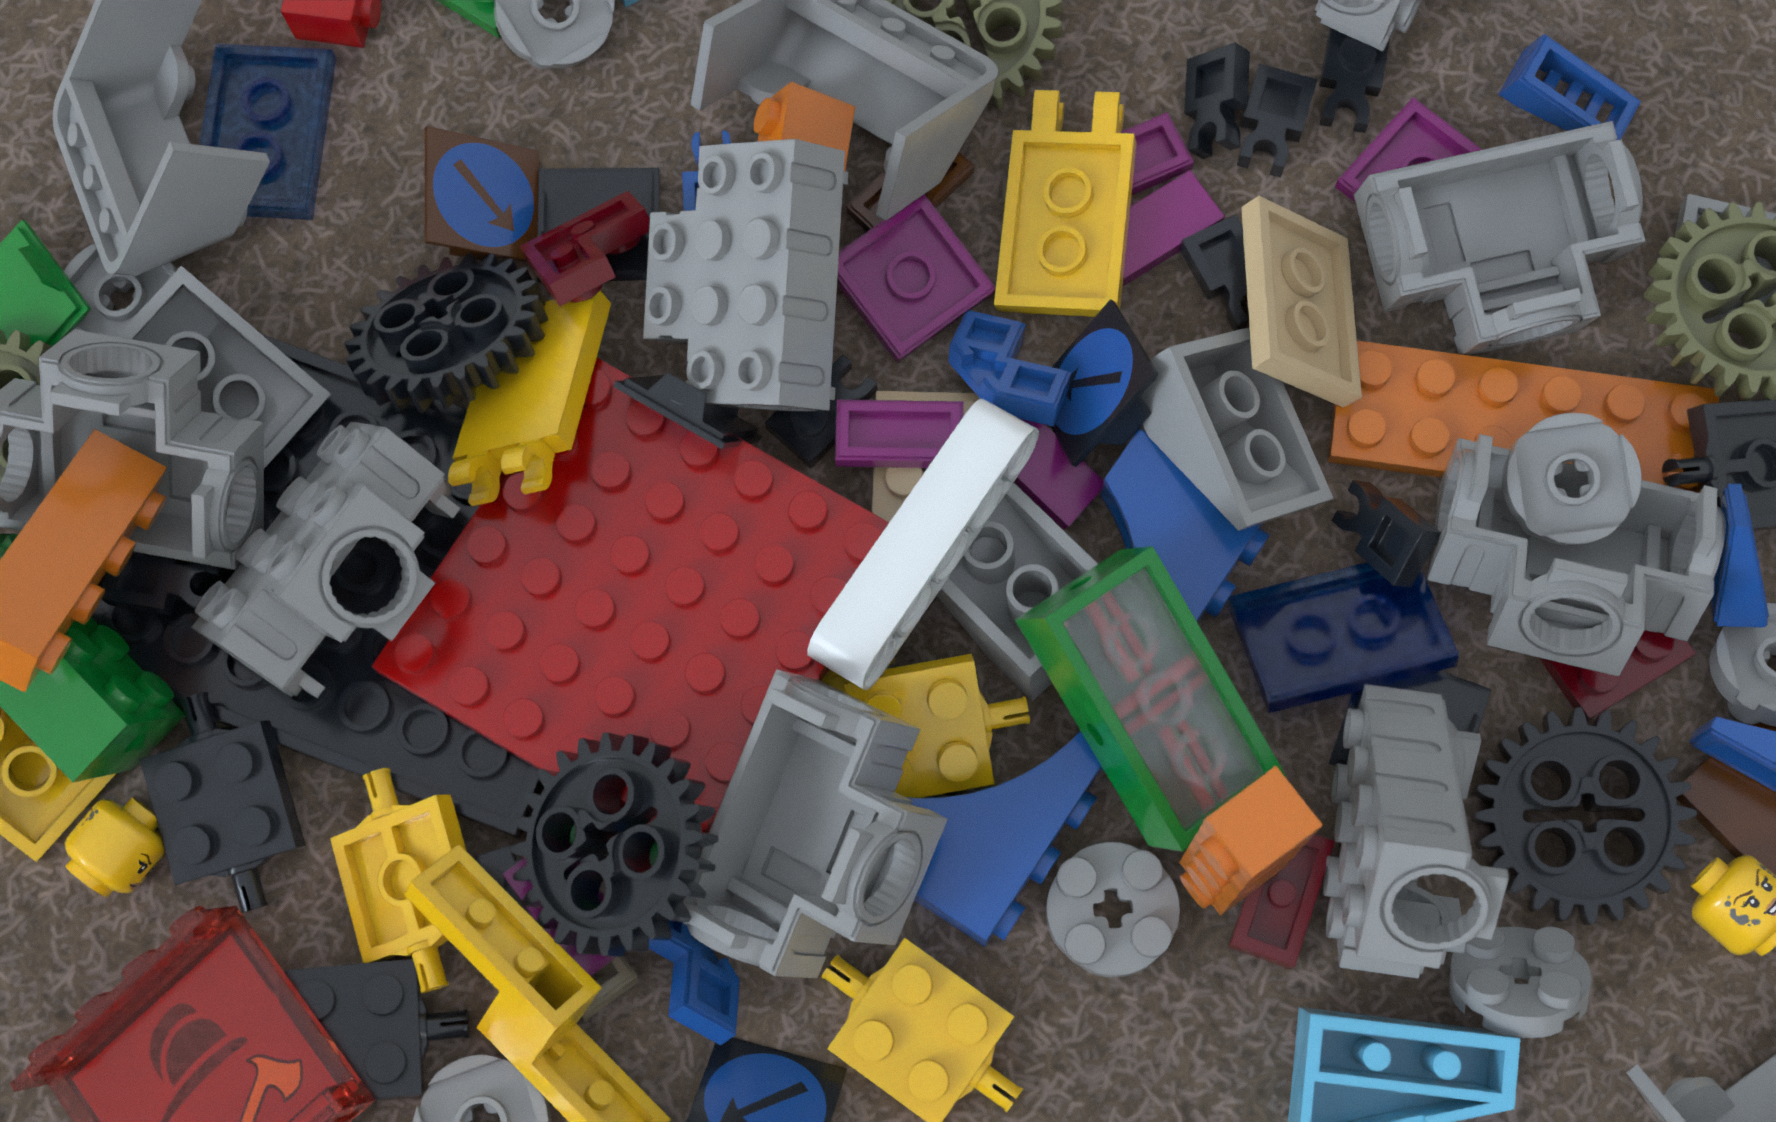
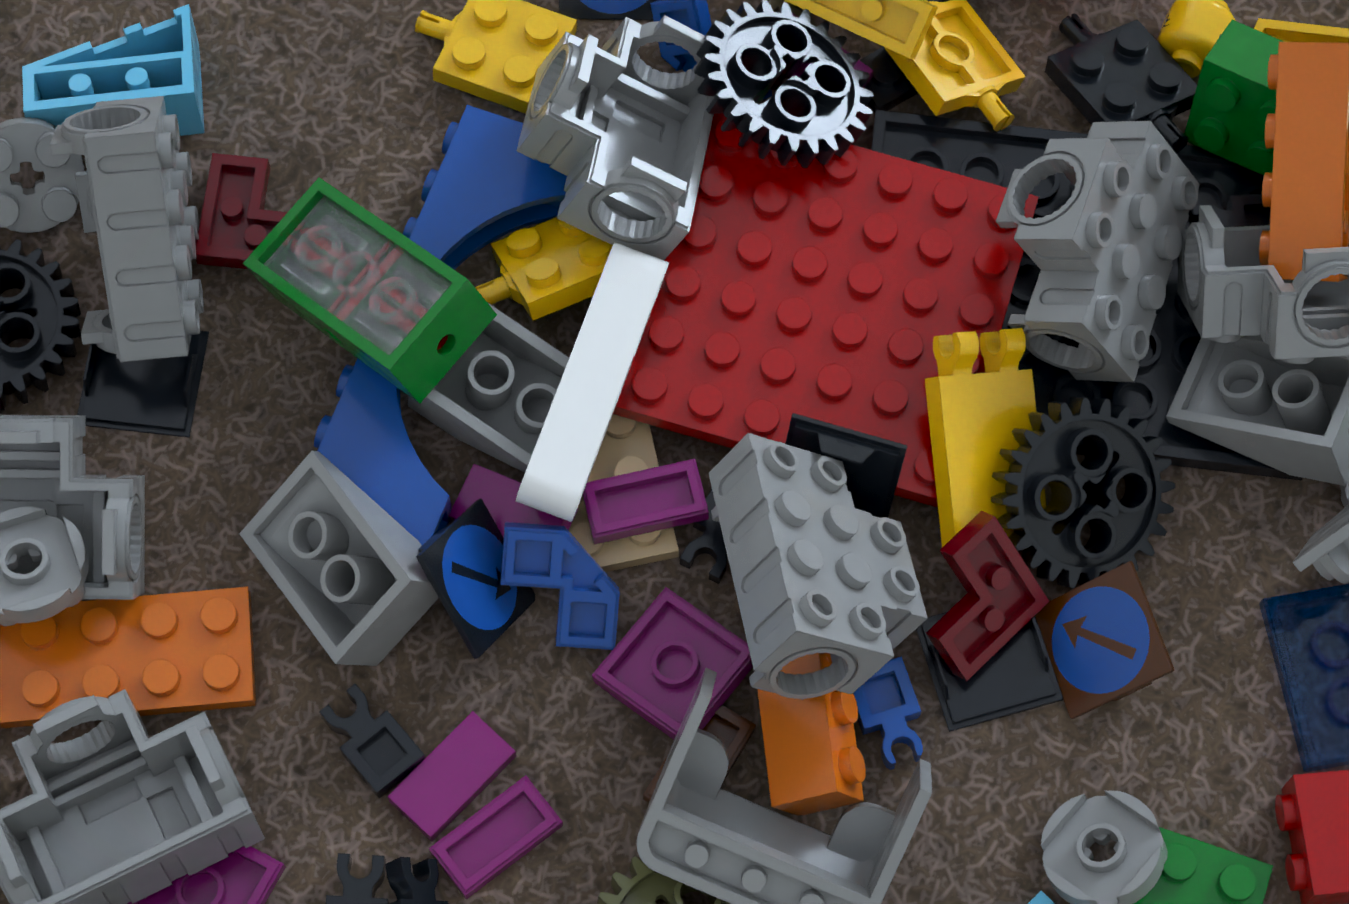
camera: 160 degrees right, 5 degrees down
(1066, 212) = (541, 762): yellow tile -> none
(1088, 938) = (377, 144): light grey plate -> none
(1247, 842) = (261, 153): orange brick -> none
(1300, 302) = (299, 701): tan plate -> none
(1338, 634) = (213, 429): clear blue tile -> none
(1392, 533) = (184, 511): black plate -> none

